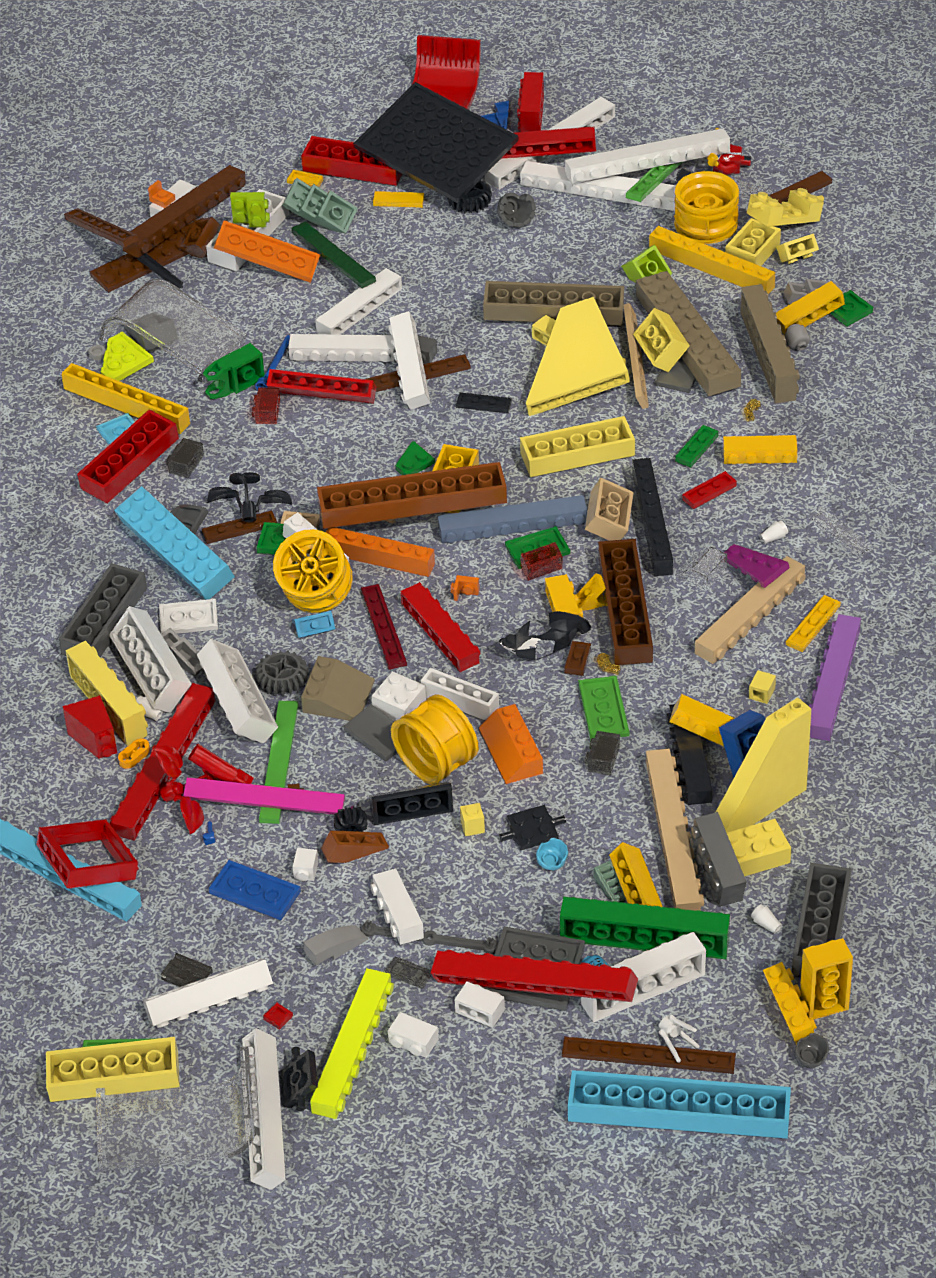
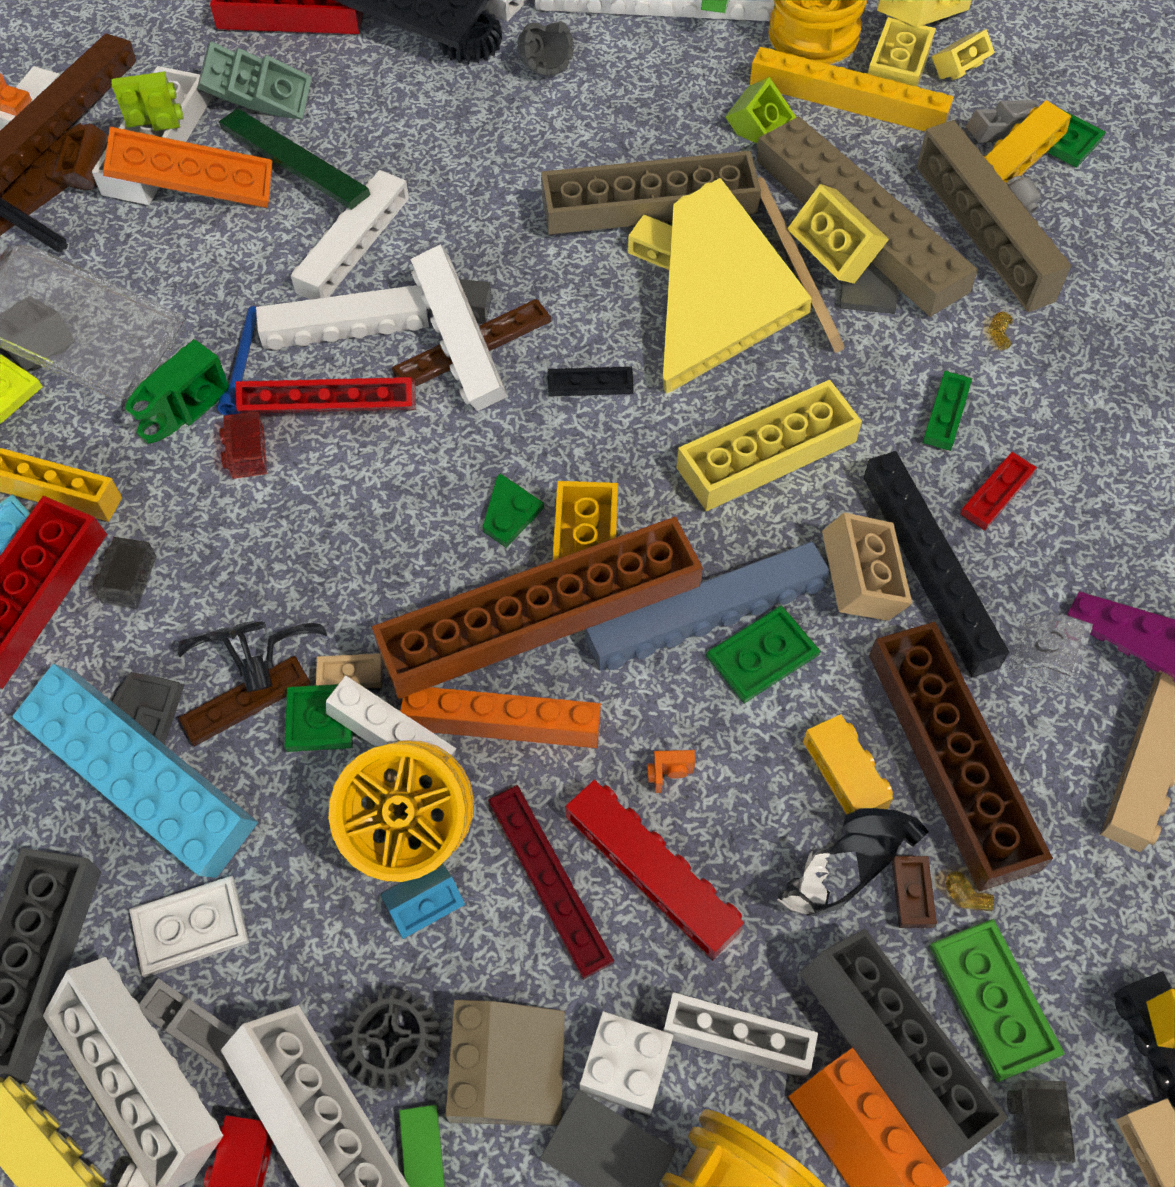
camera: 15 degrees left, 15 degrees up
(307, 178) = (228, 39): yellow tile -> none
(398, 199) = (367, 54): yellow tile -> none
(541, 561) = (787, 690): clear red brick -> none
(541, 707) = (903, 1047): none -> dark grey brick
(591, 594) = (894, 743): yellow slope -> none
(760, 449) = (1047, 402): yellow brick -> none
(774, 532) = (1134, 555): white cone -> none

